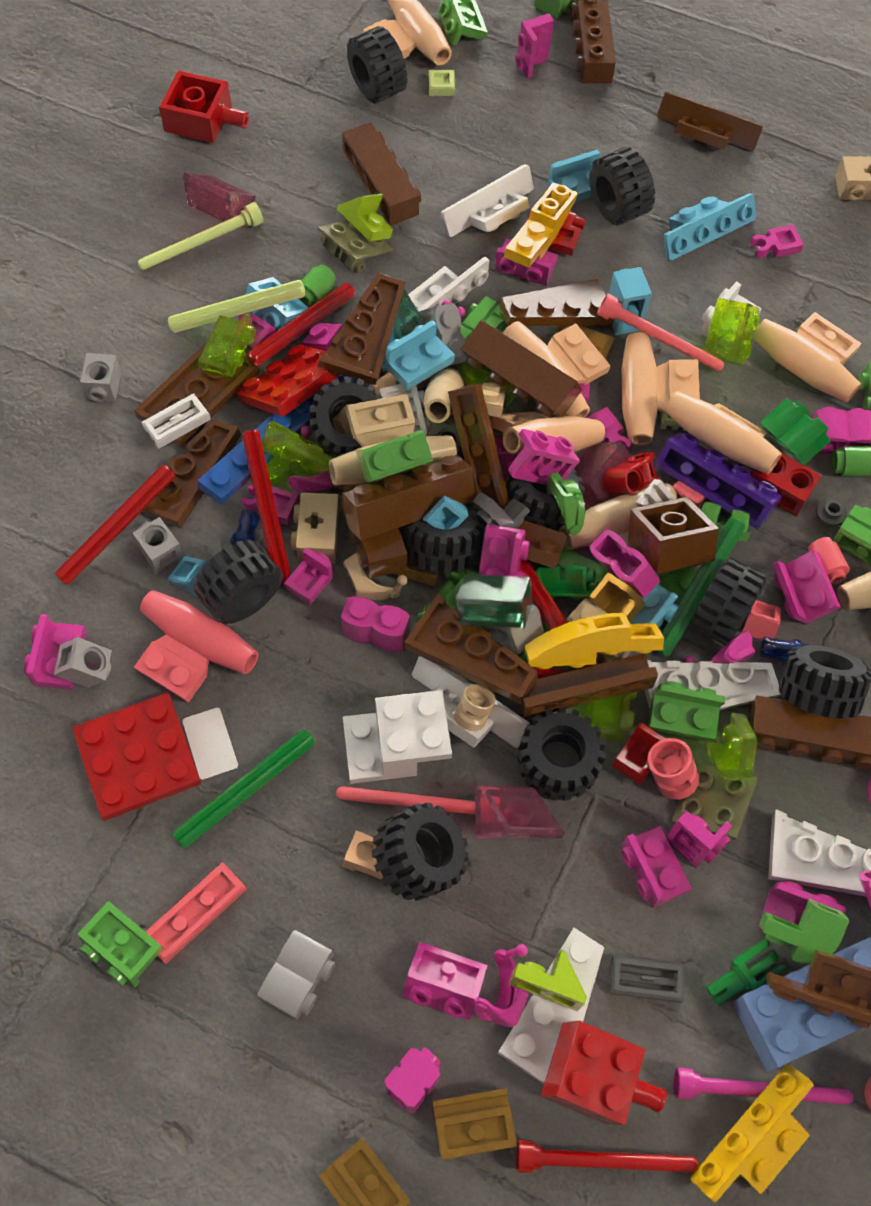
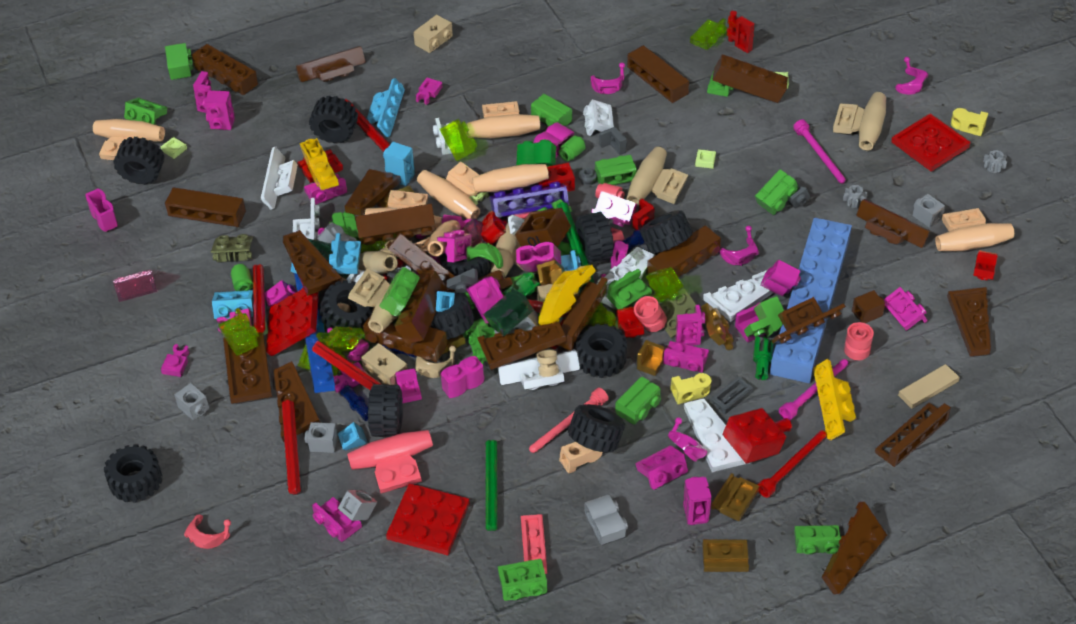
camera: 45 degrees left, 15 degrees down
(147, 320) = (176, 363): none -> dark pink plate
(178, 423) = (257, 396): white tile -> none
(199, 107) = (67, 252): red brick -> none
(210, 743) = (452, 485): white sticker -> none
(237, 306) = (219, 315): yellowish green axle -> none
(249, 216) = (163, 278): yellowish green piece -> none
(284, 89) = (101, 210): none -> dark pink brick
(364, 217) = (221, 230): lime slope -> none
(397, 736) = (529, 404): white bracket -> none
(513, 815) = (614, 385): clear pink slope -> none
(524, 865) = (638, 401): none -> bright green brick
(525, 76) = (219, 110): none -> dark pink brick
(559, 986) = (703, 420): lime slope -> none
(574, 174) = (298, 133): medium azure bracket -> none
(605, 918) = (690, 388): none -> light yellow leg
(606, 824) = (650, 358): none -> pearl gold panel
(613, 309) = (399, 170): coral piece -> none
(658, 226) = (369, 129): none -> red axle
(735, 872) = (717, 326): none -> pearl gold plate
(833, 632) = (644, 215): none -> red bracket

